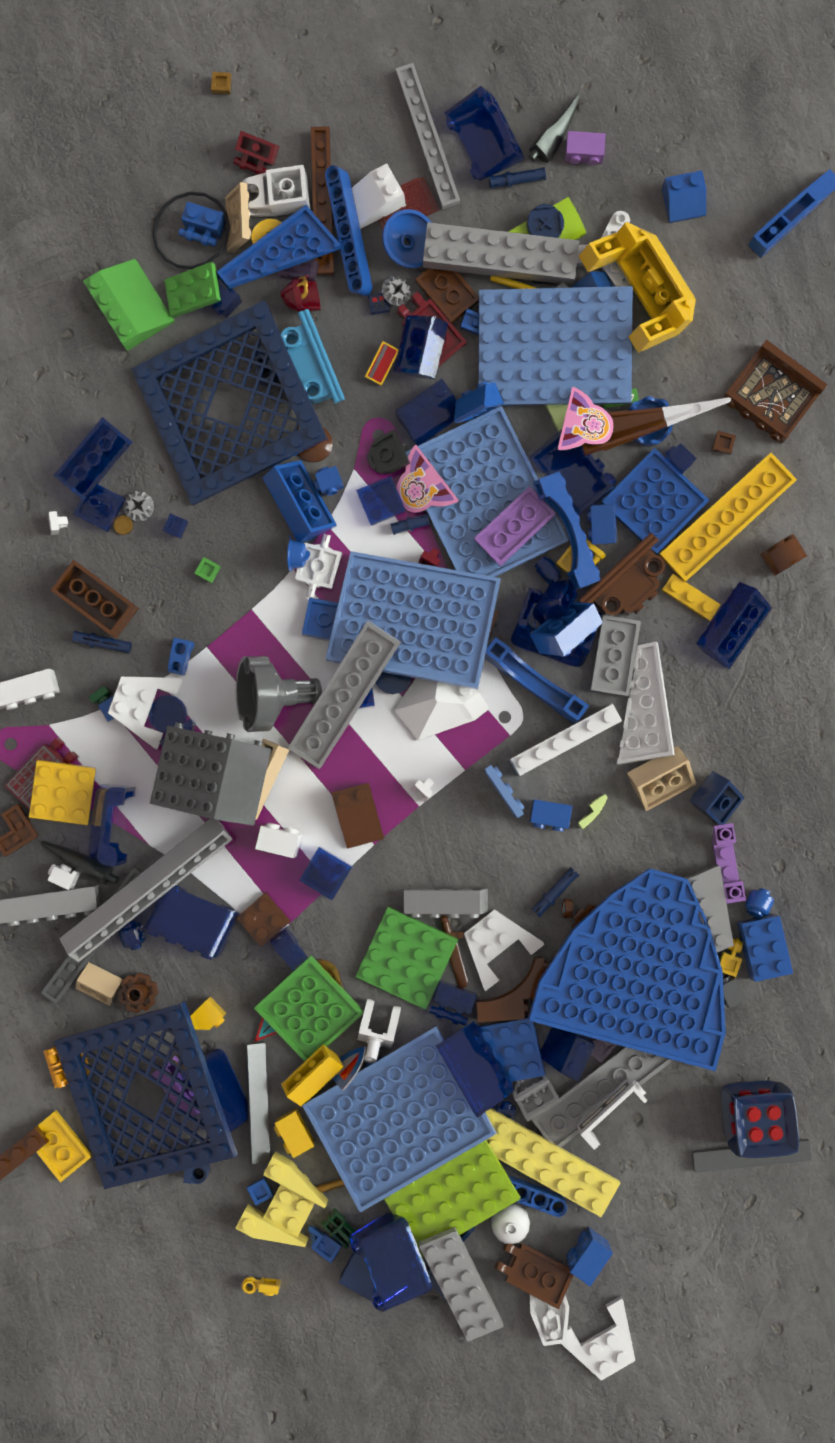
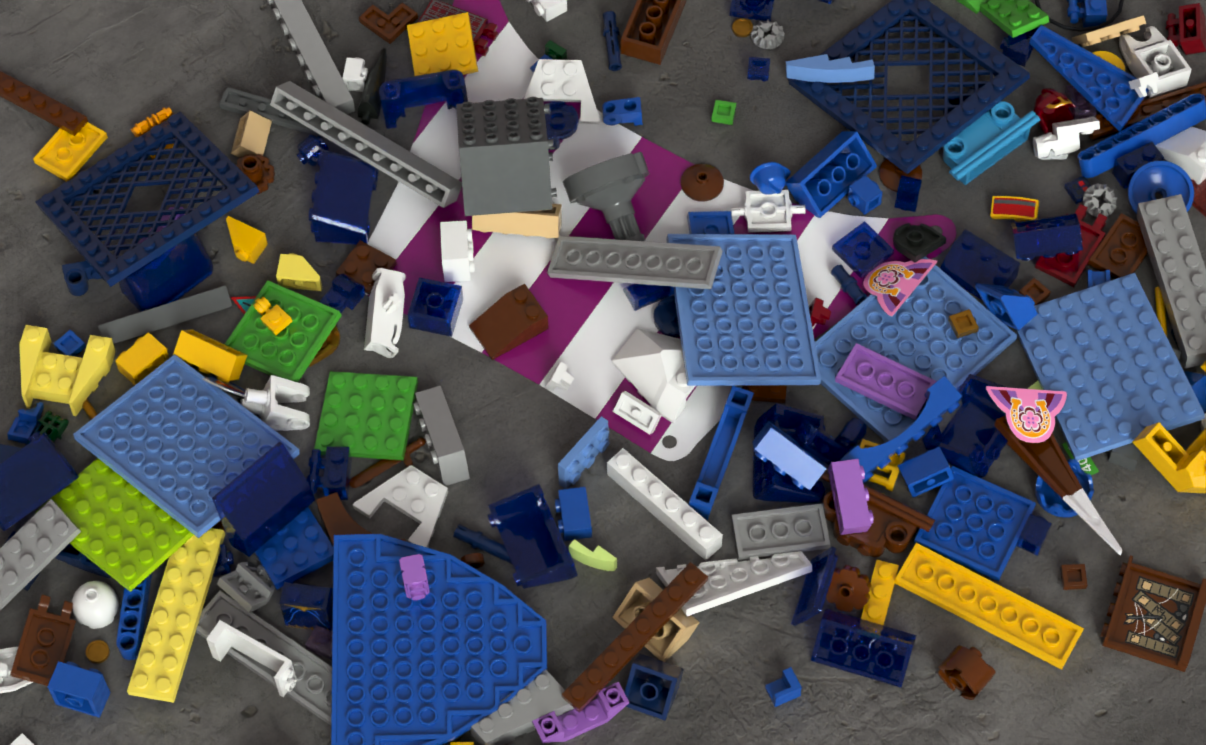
camera: 70 degrees right, 25 degrees down
(199, 472) = (829, 71): none -> medium blue slope
(251, 980) = (297, 273): none -> light yellow slope
(276, 617) = (702, 189): none -> reddish brown dish
(296, 1012) = (275, 318): none -> yellow plate
(304, 208) = (1148, 81): none -> white tile
(317, 916) = (385, 312): none -> white piece
(329, 295) = (1064, 138): none -> white plate
(340, 445) = (907, 193): none -> clear blue bracket
(374, 246) = (1129, 163): none -> clear blue brick
(465, 377) = (1036, 291): none -> reddish brown plate
(475, 735) = (637, 412): none -> white plate
(481, 445) = (963, 323): none -> pearl gold plate
(550, 1229) = (97, 651): none -> pearl gold piece
(571, 856) = (532, 539): none -> clear blue windscreen
(595, 967) = (414, 576): none -> medium lavender brick
(617, 592) = (850, 496): none -> medium lavender brick
(679, 645) = (815, 586): none -> clear blue piece
(685, 620) = (849, 589): none -> reddish brown plant
(685, 802) = (634, 637): none -> reddish brown plate
(748, 698) = (785, 688): none -> blue panel

